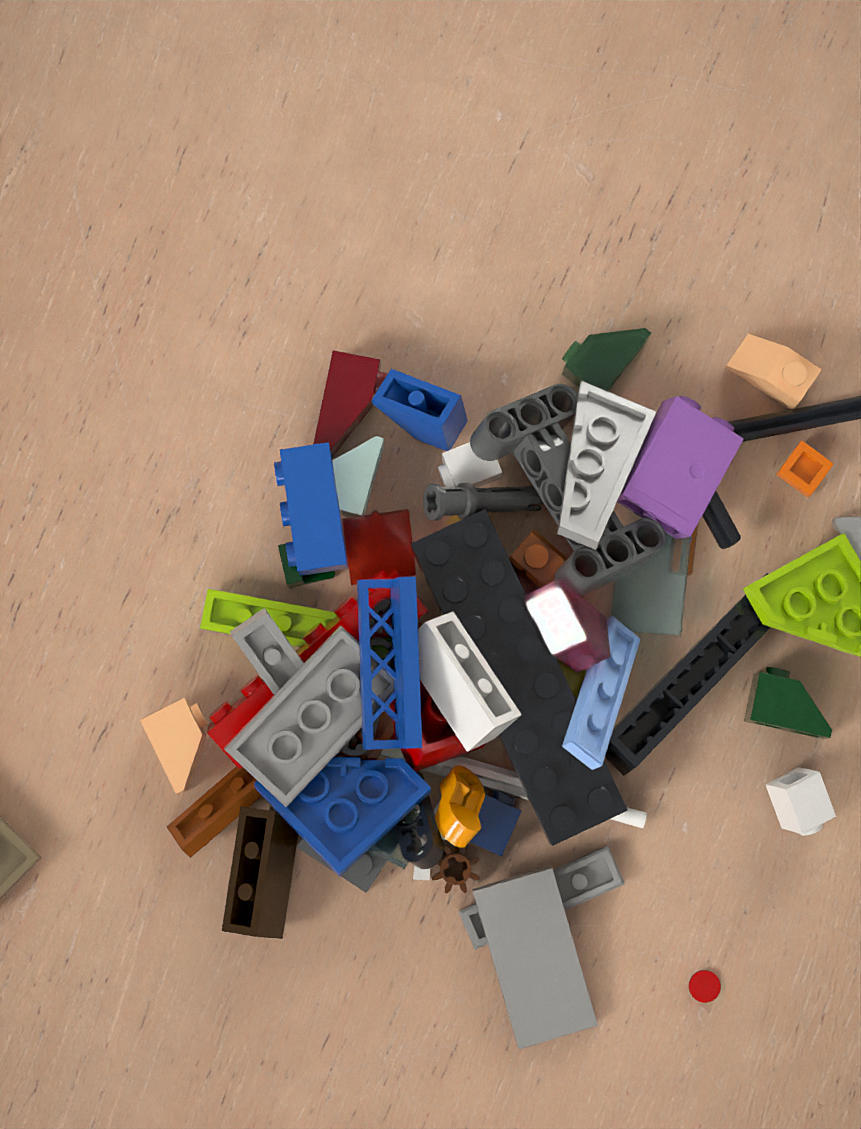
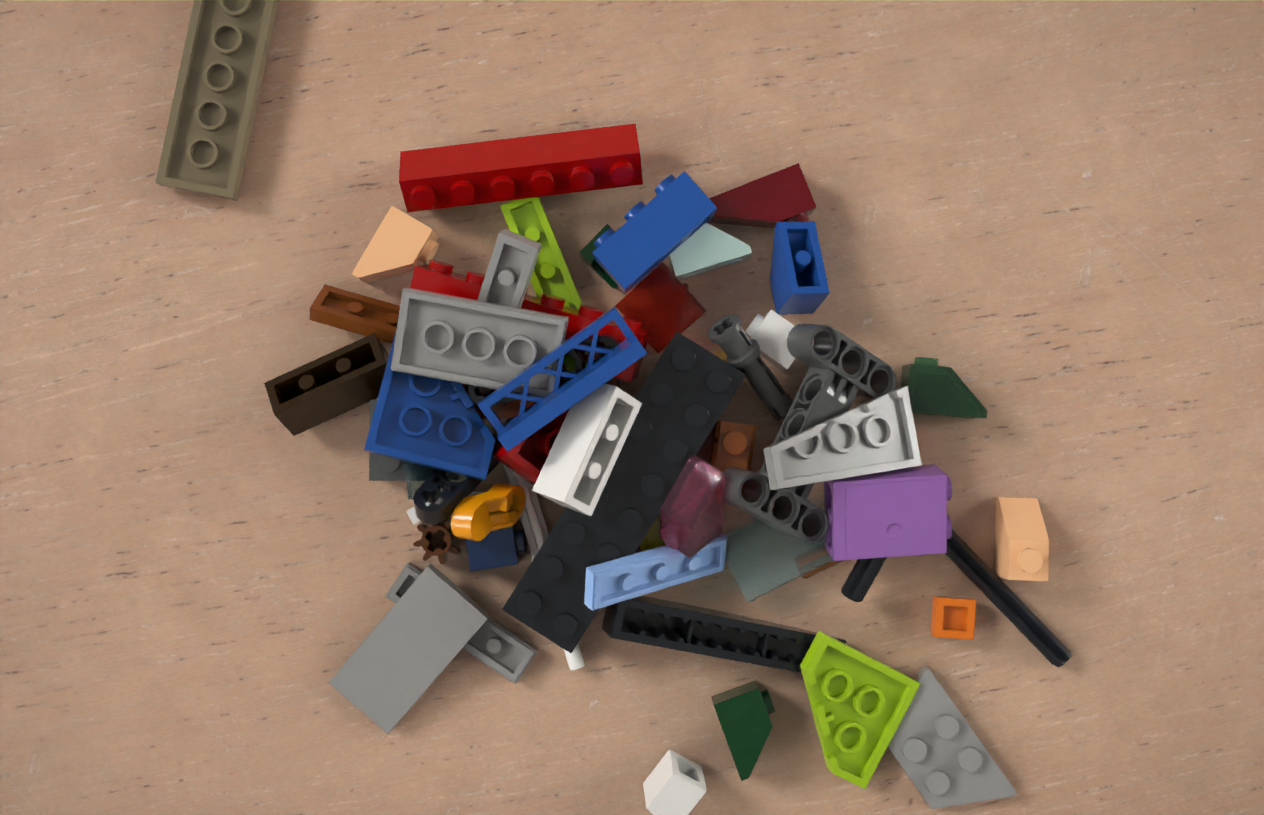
camera: 60 degrees right, 5 degrees up
(180, 588) = (520, 168): none -> red brick
(704, 986) = (475, 799): red piece -> none

